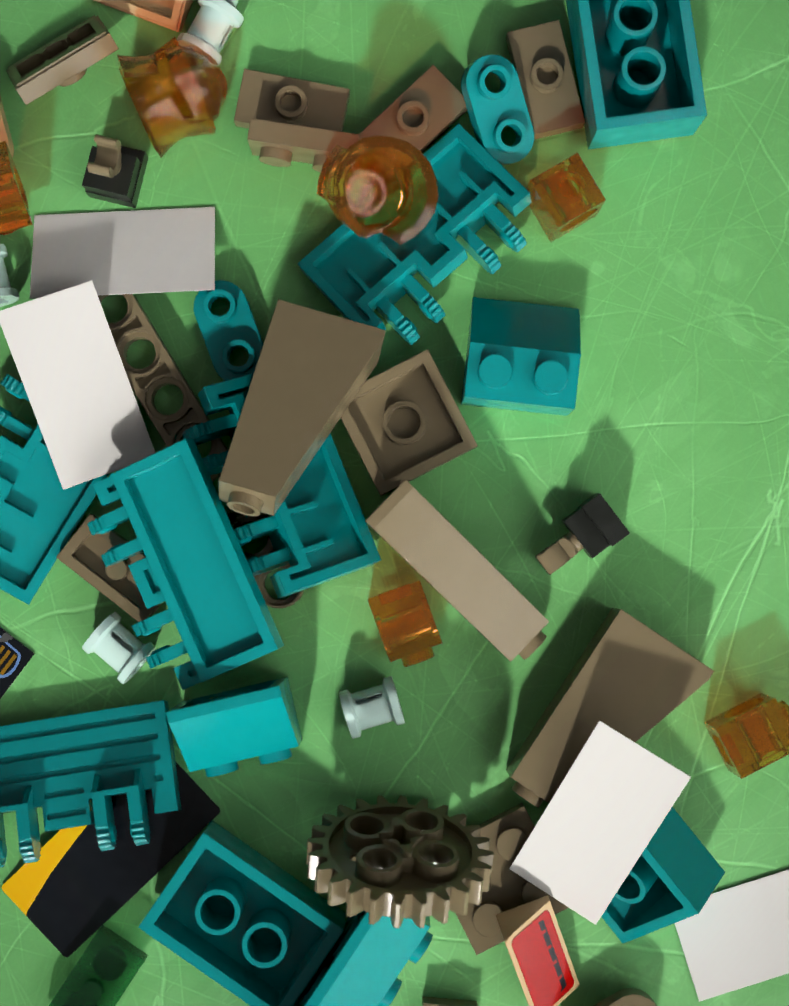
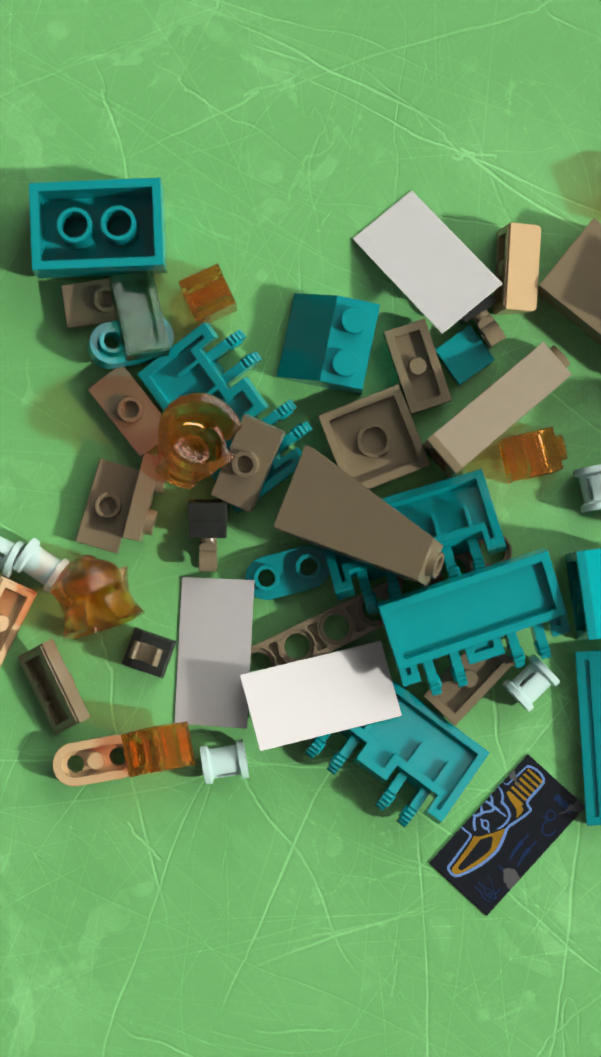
camera: 85 degrees left, 0 degrees up
(282, 227) = (208, 522): none -> pearl dark grey piece
(359, 266) = (246, 474): none -> dark tan plate
(502, 468) = (417, 366): none -> dark tan plate
(523, 526) = (464, 355): none -> teal tile
(529, 112) = (139, 315): none -> clear green tile
(634, 467) = (427, 261): none -> white sticker
(638, 581) = (517, 268): none -> tan slope

